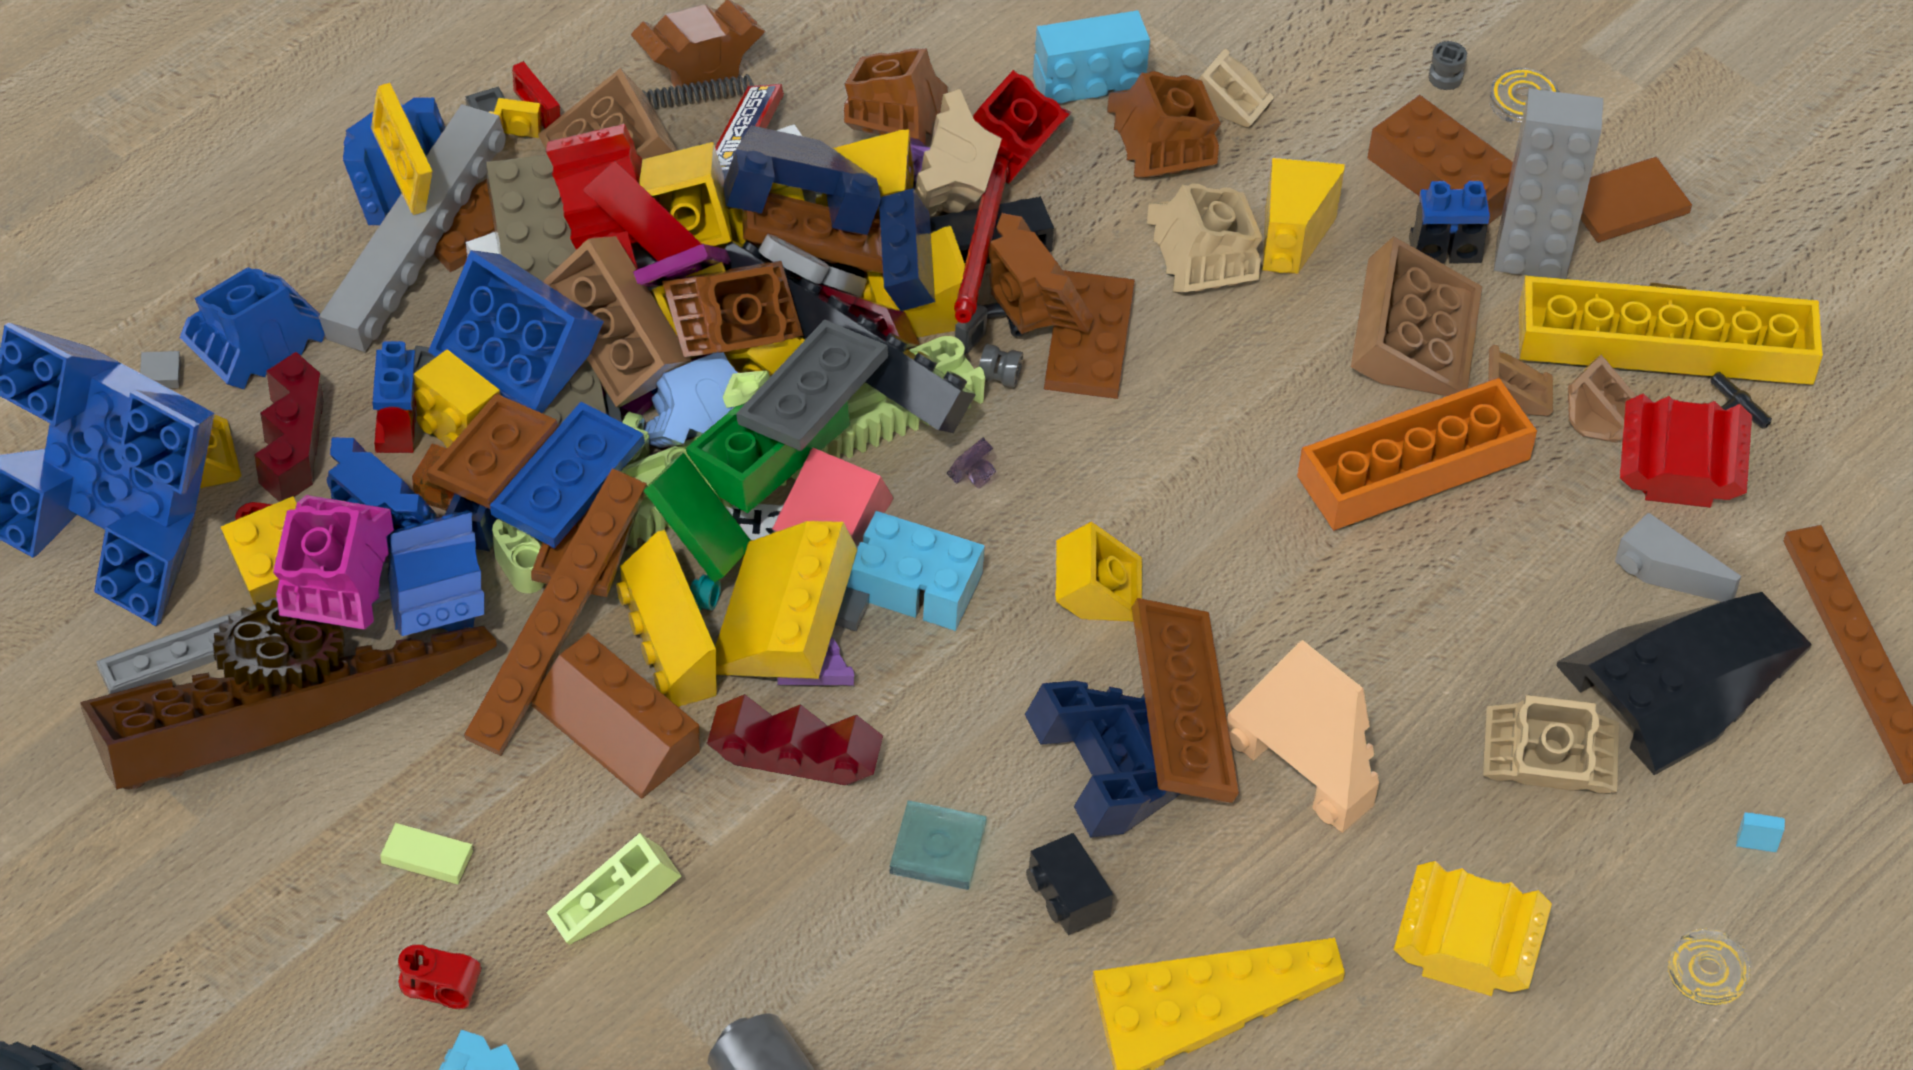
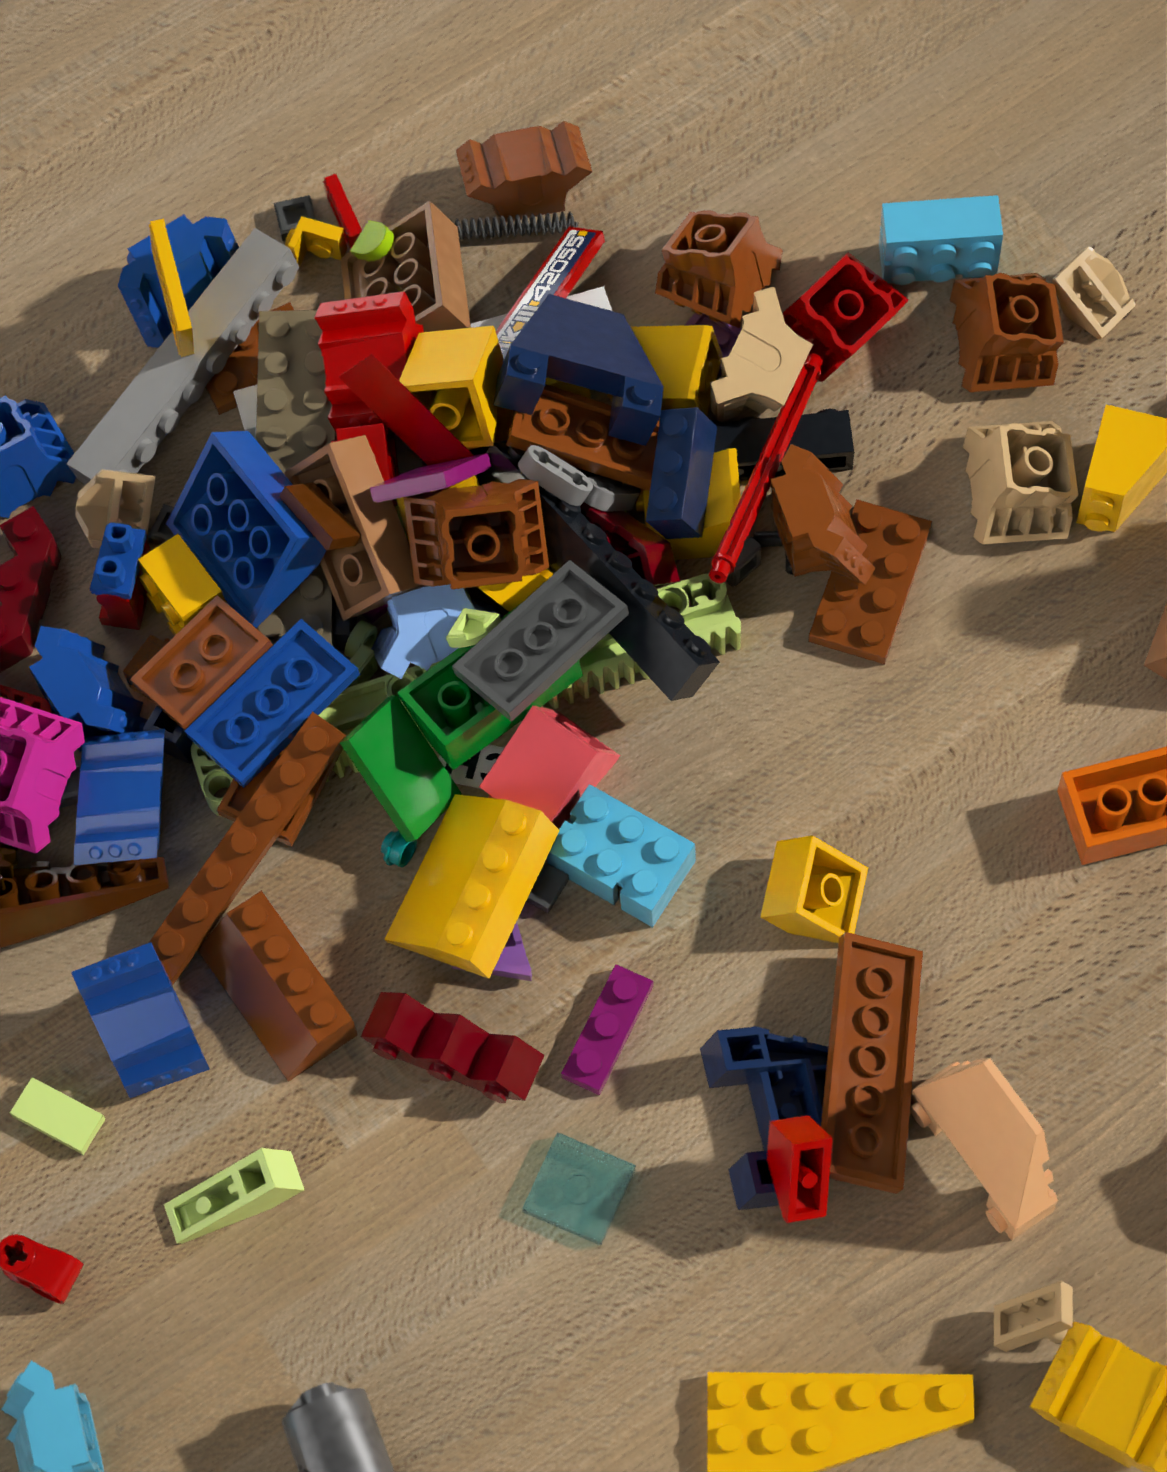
camera: 20 degrees right, 15 degrees up
(361, 339) = (114, 499): none -> tan slope
(497, 748) = (140, 1020): none -> blue slope
(571, 110) = (373, 242): none -> lime tile
(588, 304) = (320, 516): none -> reddish brown tile
(668, 622) = (348, 885): yellow slope -> none
(934, 714) = (607, 1029): none -> magenta plate
(974, 465) = (710, 732): clear purple tile -> none
(1004, 369) = (764, 612): dark grey wheel -> none
(1070, 884) = (702, 1267): black brick -> none
(1144, 778) = (800, 1167): none -> red slope
(1381, 877) = (1034, 1316): none -> tan tile

